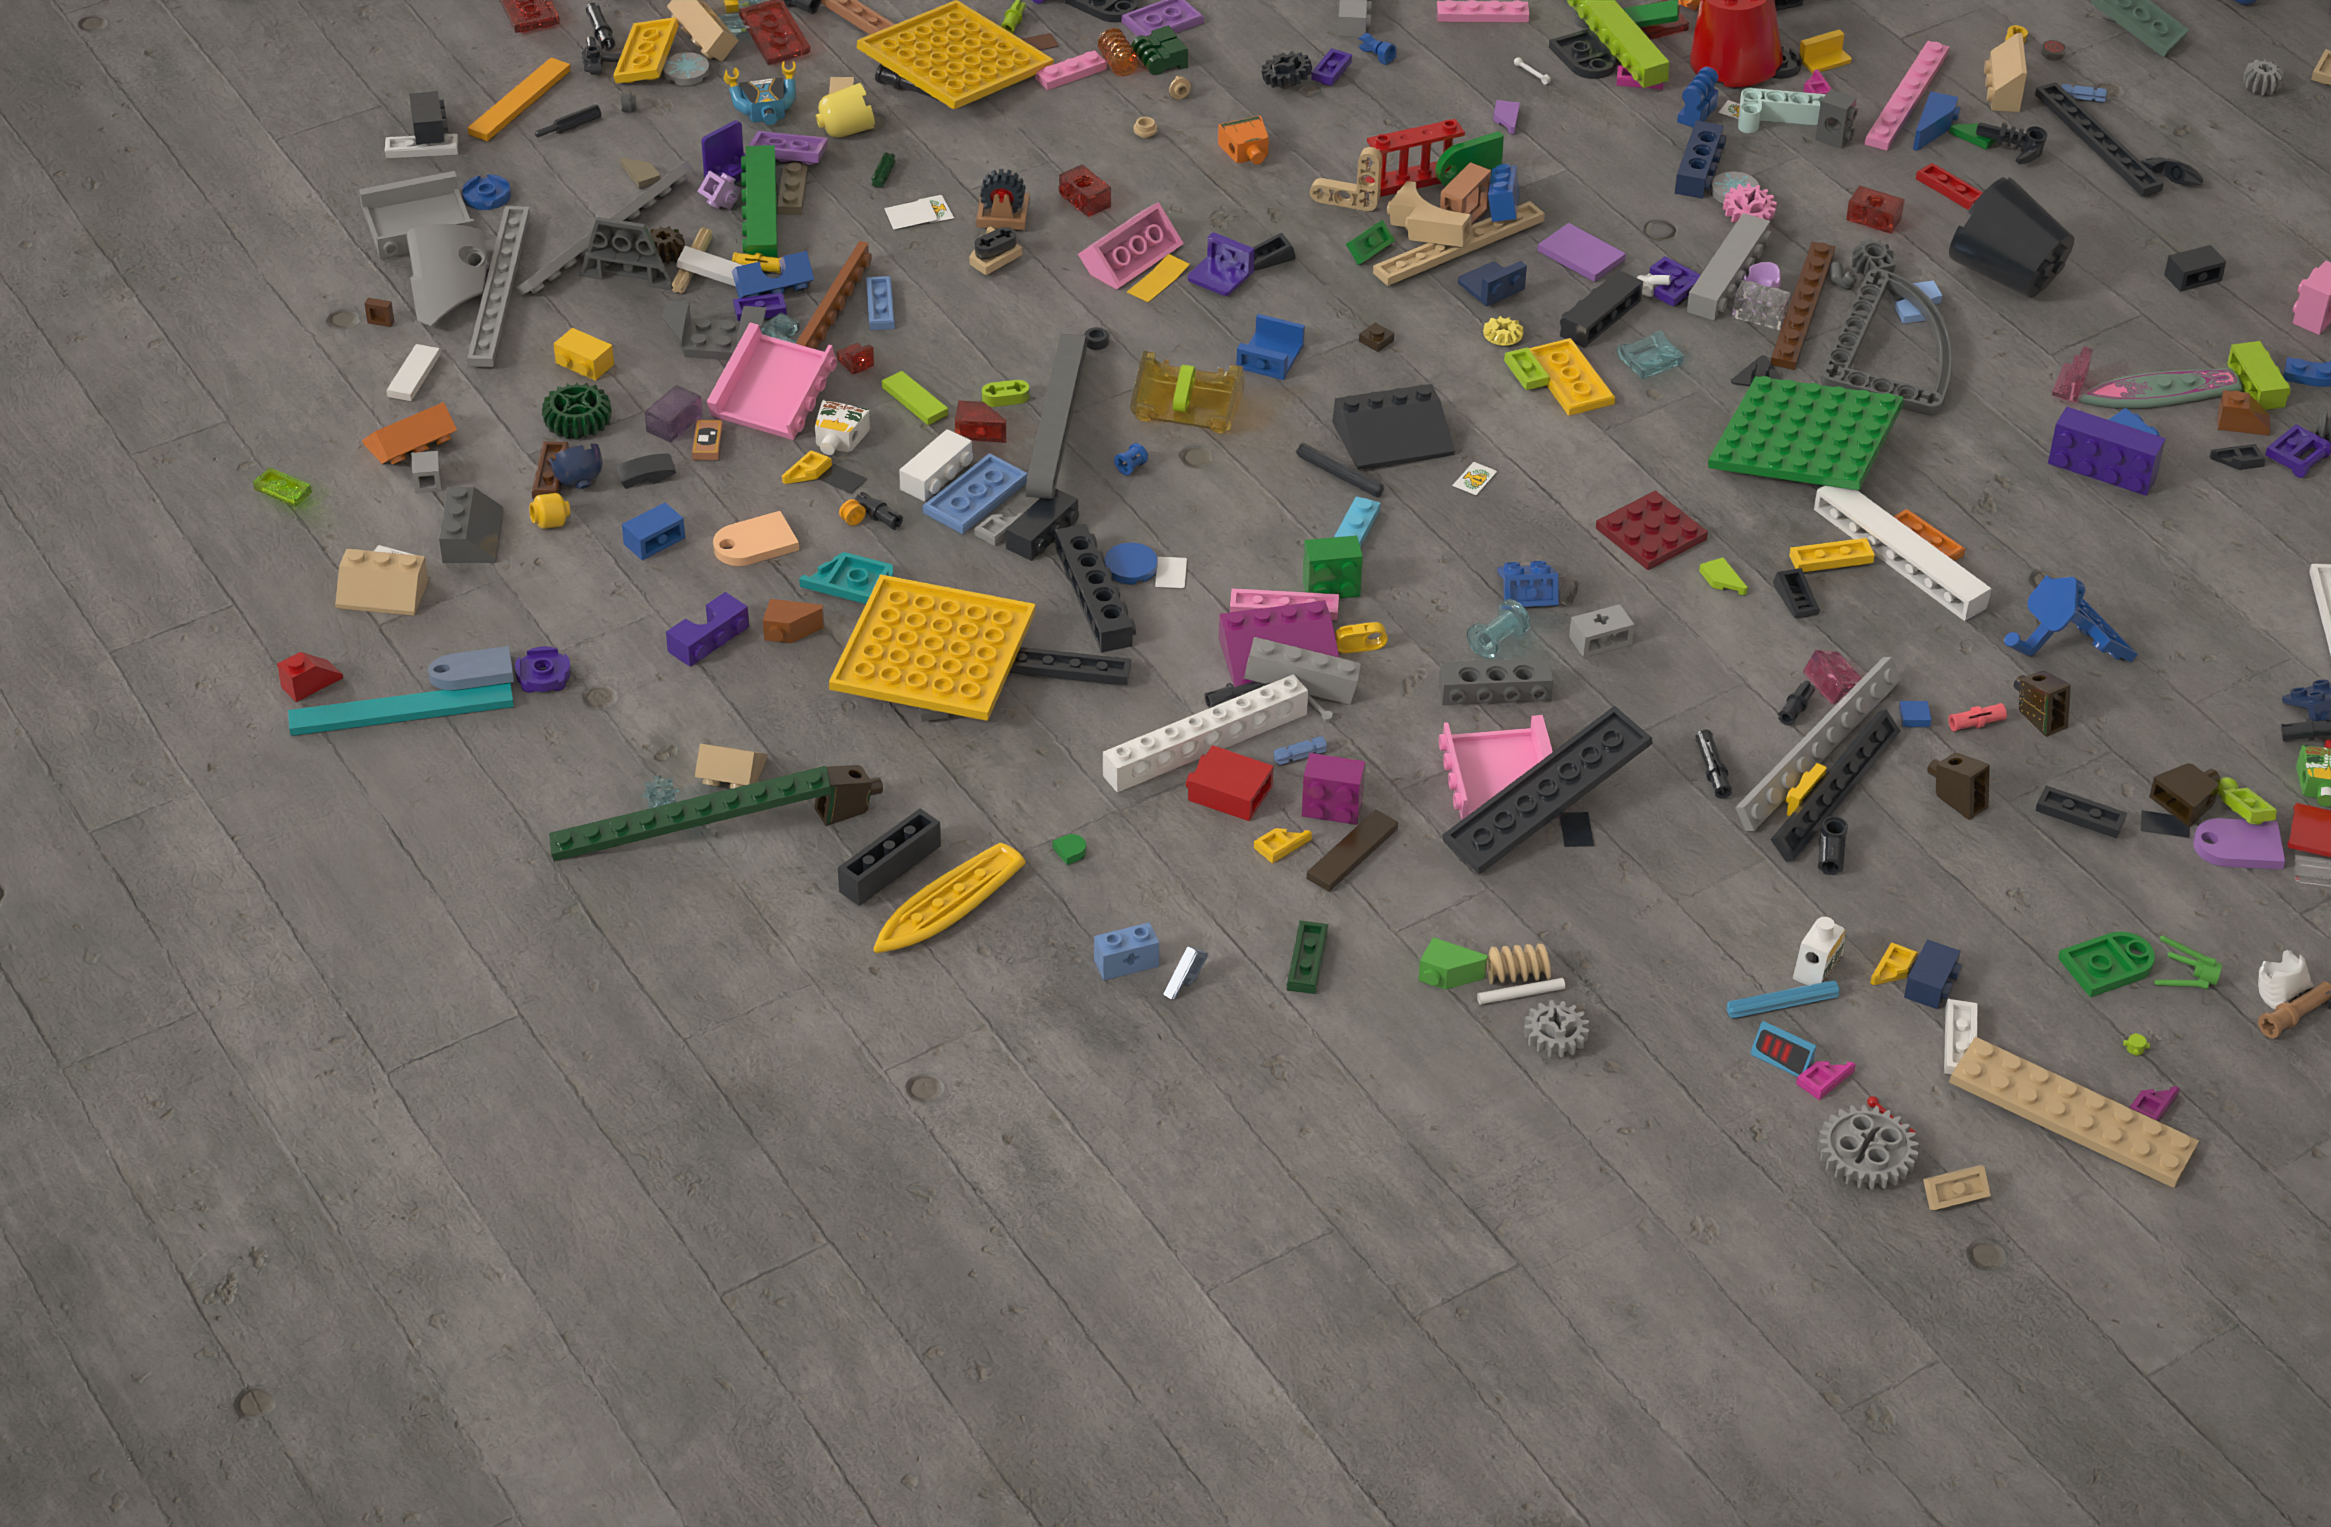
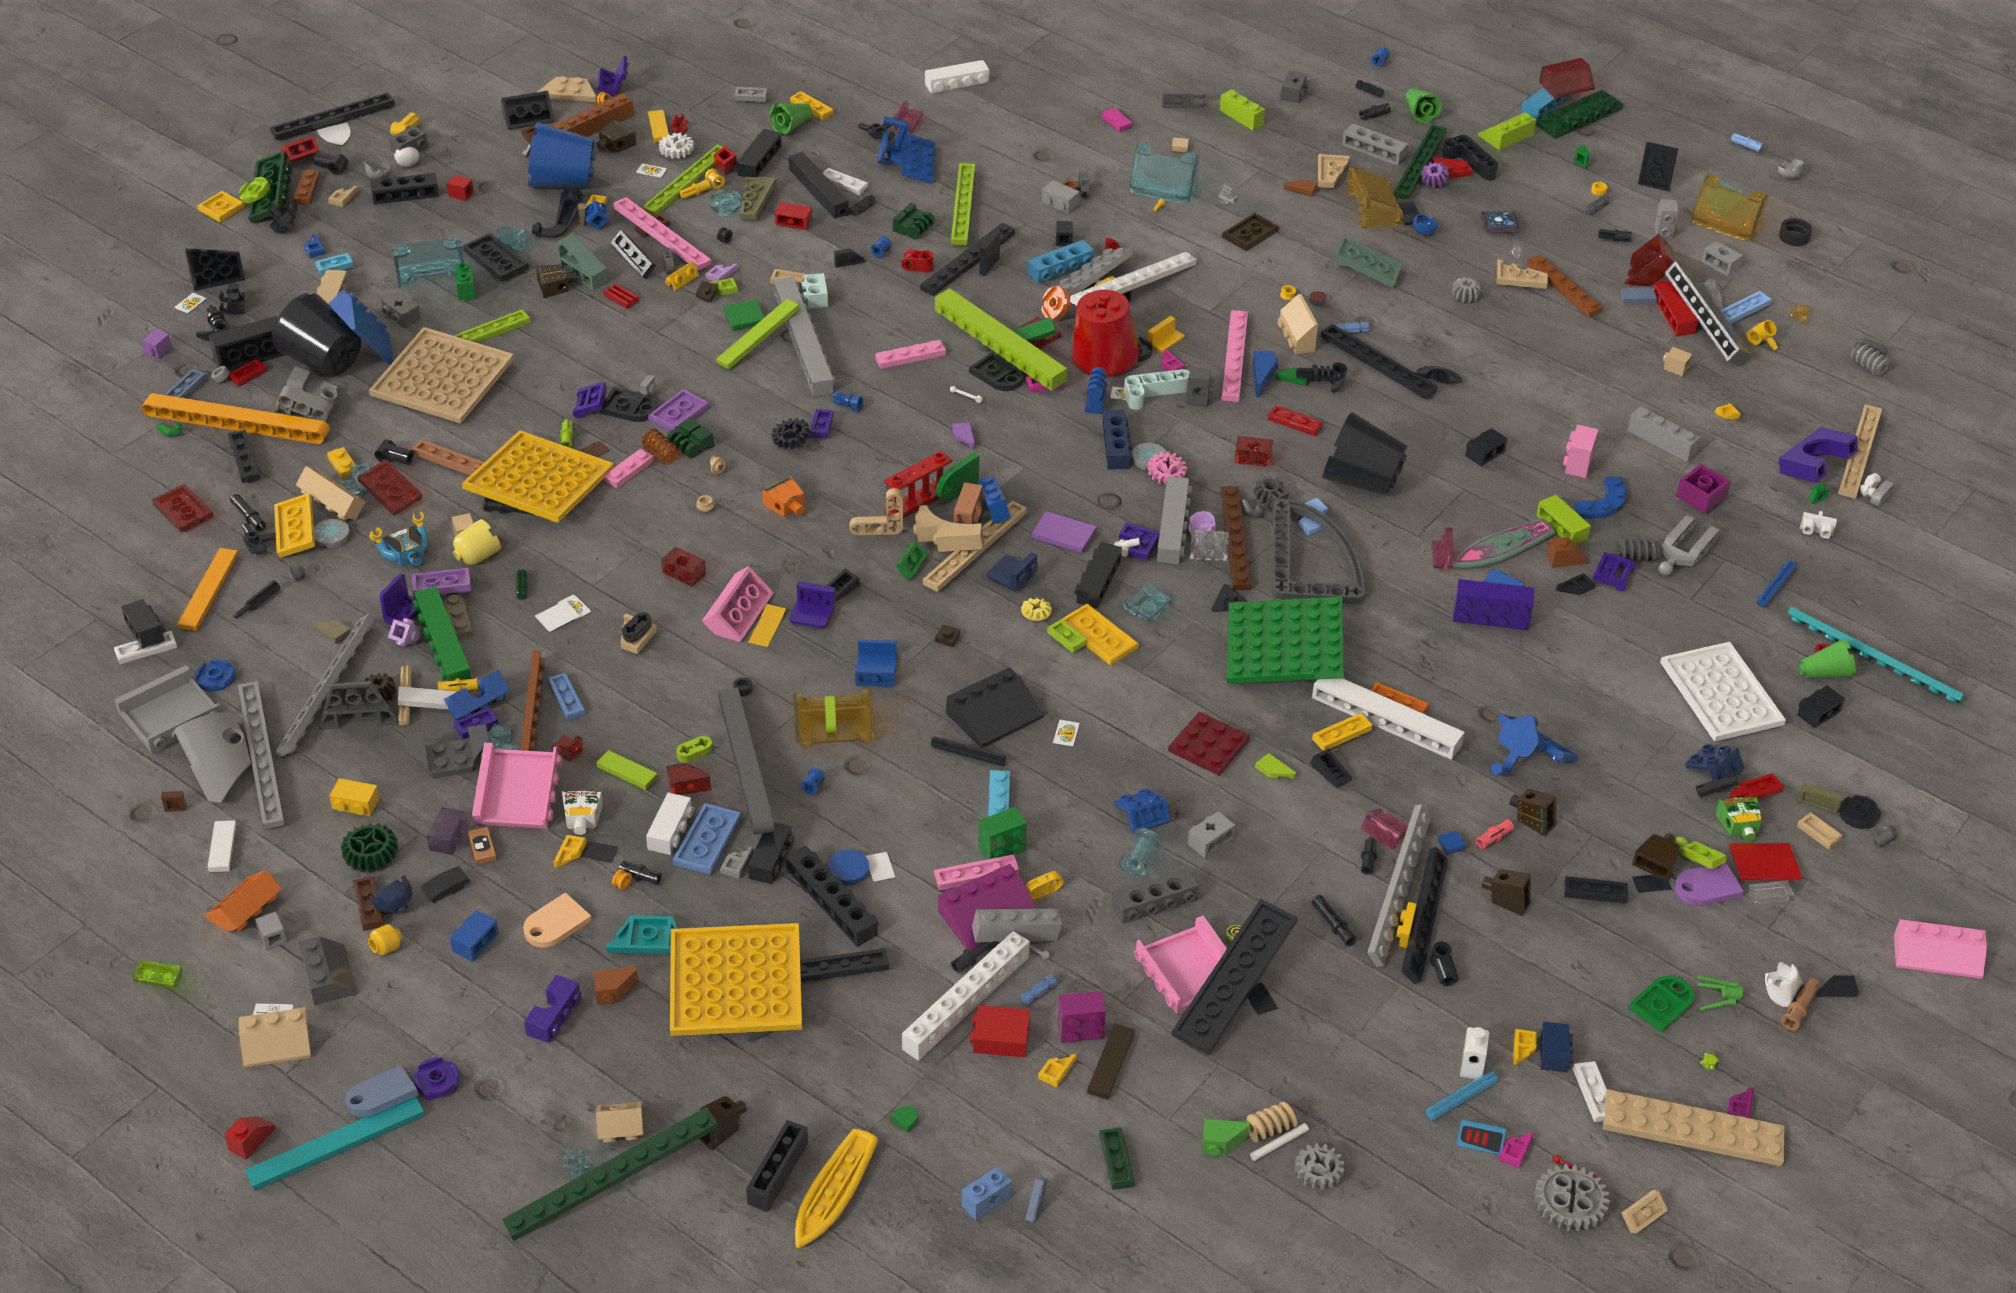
camera: 20 degrees left, 0 degrees up
(1003, 201) = (627, 592): plate -> none

